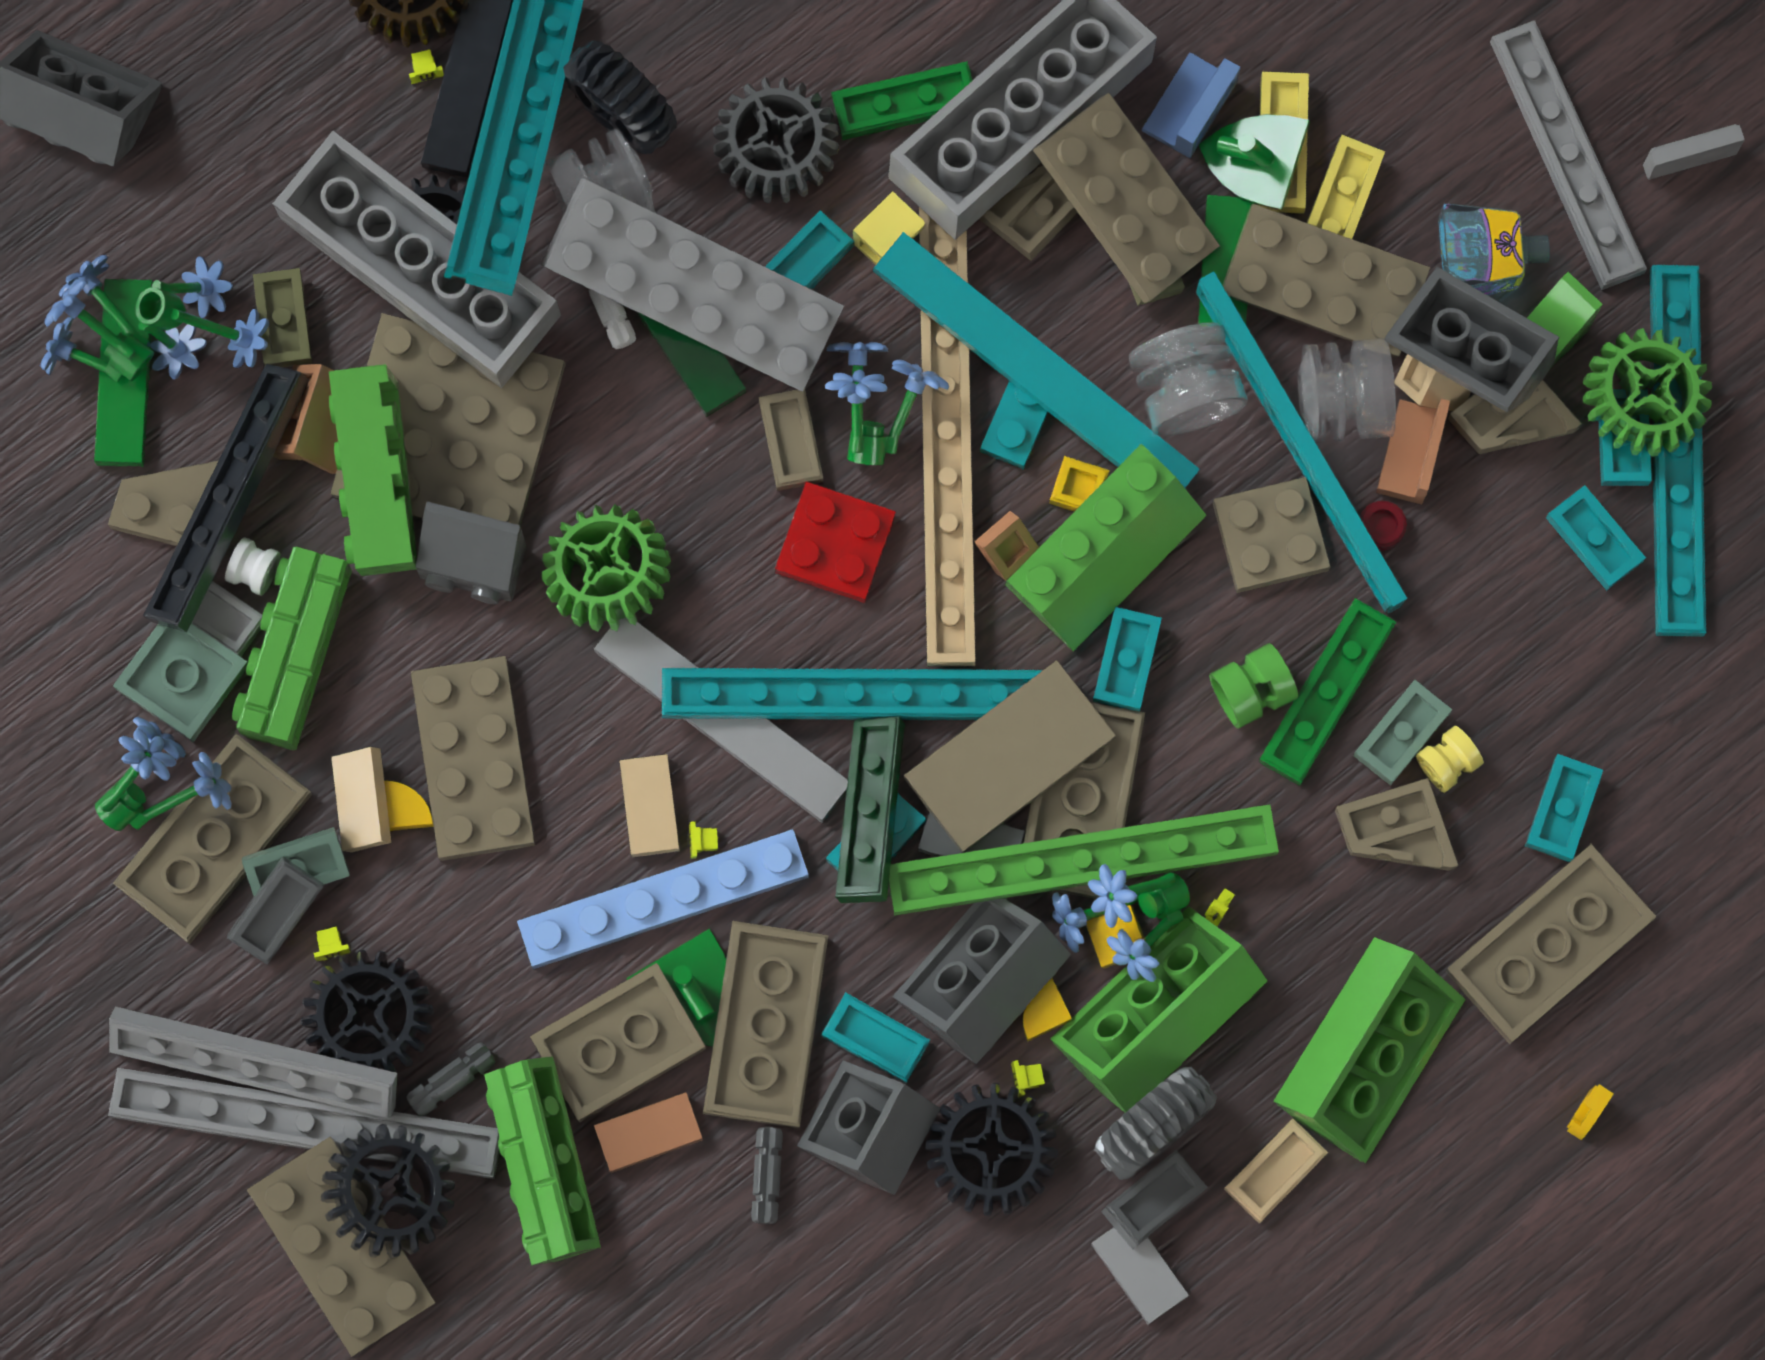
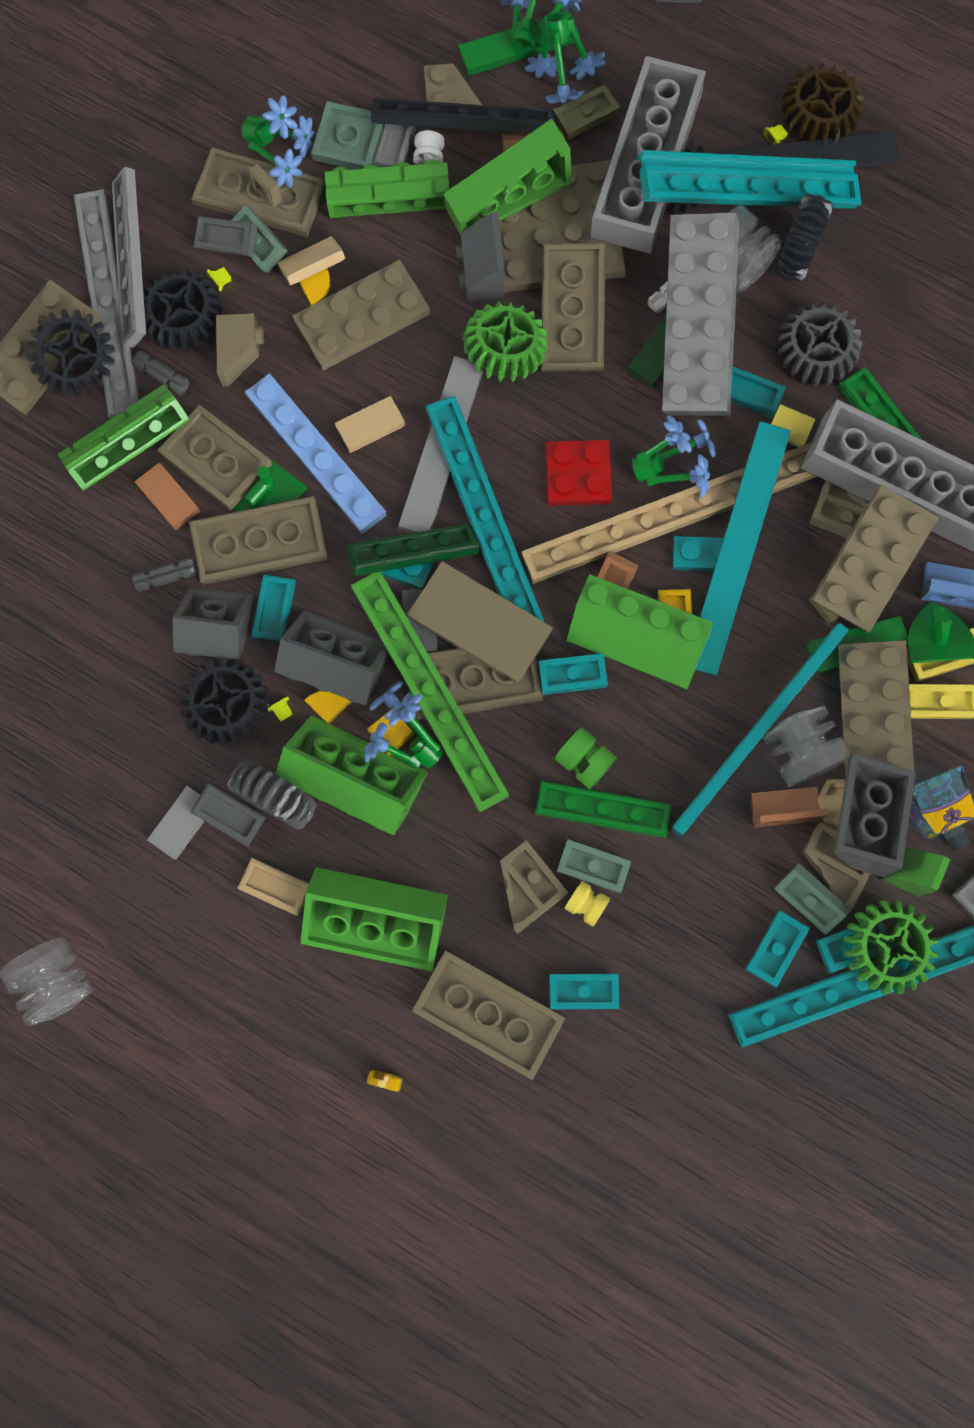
camera: 70 degrees right, 0 degrees up
(224, 822) = (265, 185): none -> dark tan tile
(453, 952) = (236, 344): none -> dark tan slope
(589, 452) = (573, 306): none -> dark tan tile
(701, 839) = (360, 462): neon yellow piece -> none
(790, 439) = (632, 423): dark tan tile -> none
(1188, 379) = (771, 642): clear wheel -> none
(1219, 907) = (432, 789): neon yellow piece -> none
(1271, 535) = (692, 736): dark tan plate -> none
(1384, 524) = (728, 805): dark red tile -> none
(1547, 466) = (812, 899): none -> sand green plate

